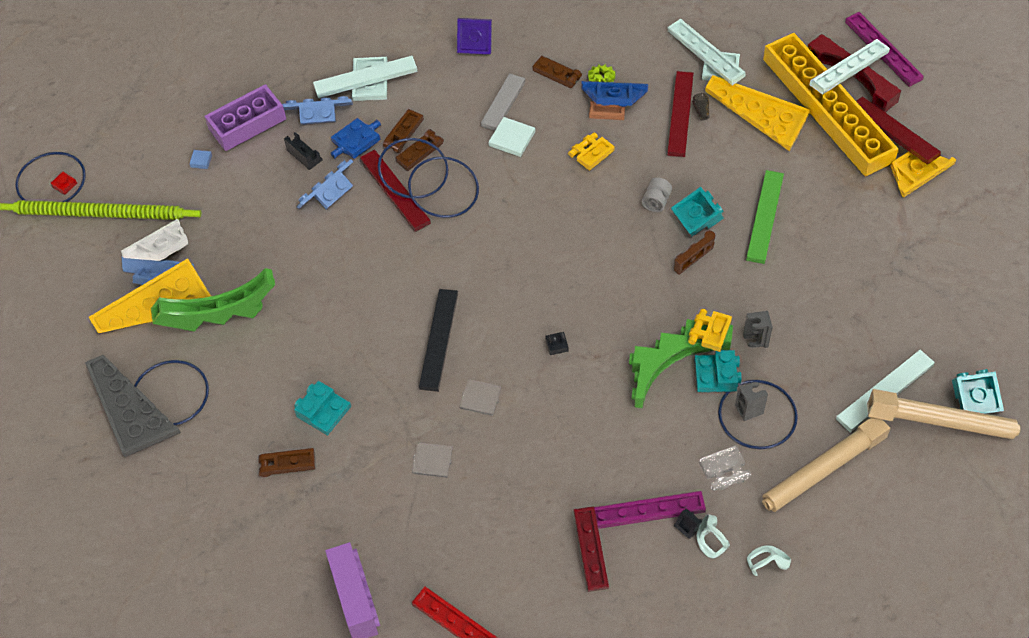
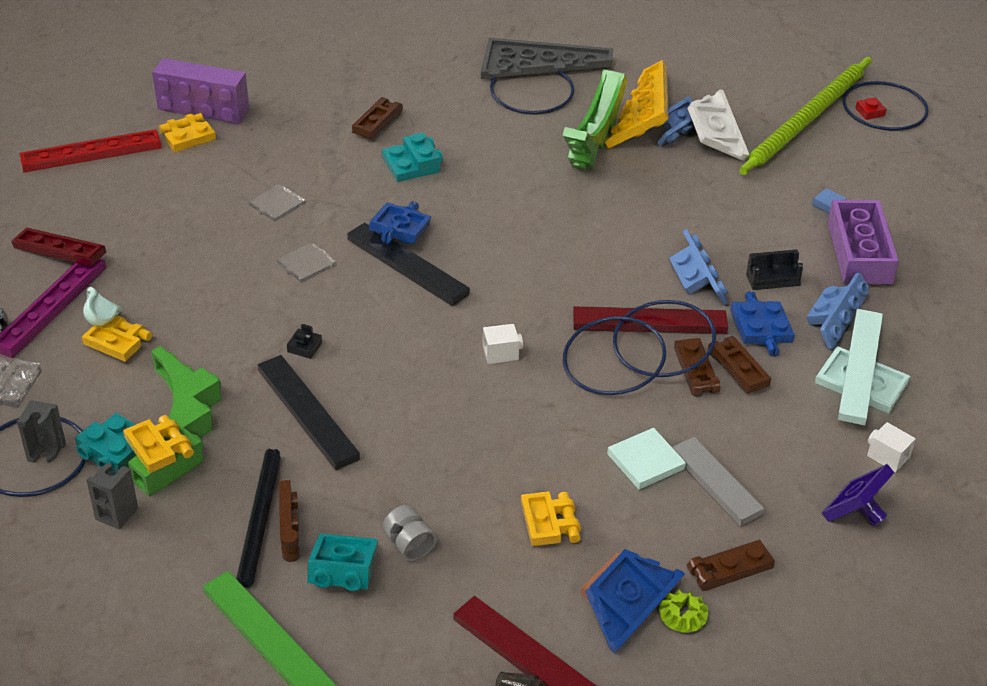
camera: 120 degrees right, 15 degrees down
(399, 575) = (193, 135): none -> yellow plate
(407, 360) = (400, 222): none -> blue plate
(422, 42) = (890, 446): none -> white brick
(479, 241) = (501, 343): none -> white brick
(608, 304) = (309, 412): none -> black tile
(634, 453) = (99, 310): none -> light aqua piece
(645, 441) = (117, 338): none -> yellow plate
(700, 271) = (258, 518): none -> black axle

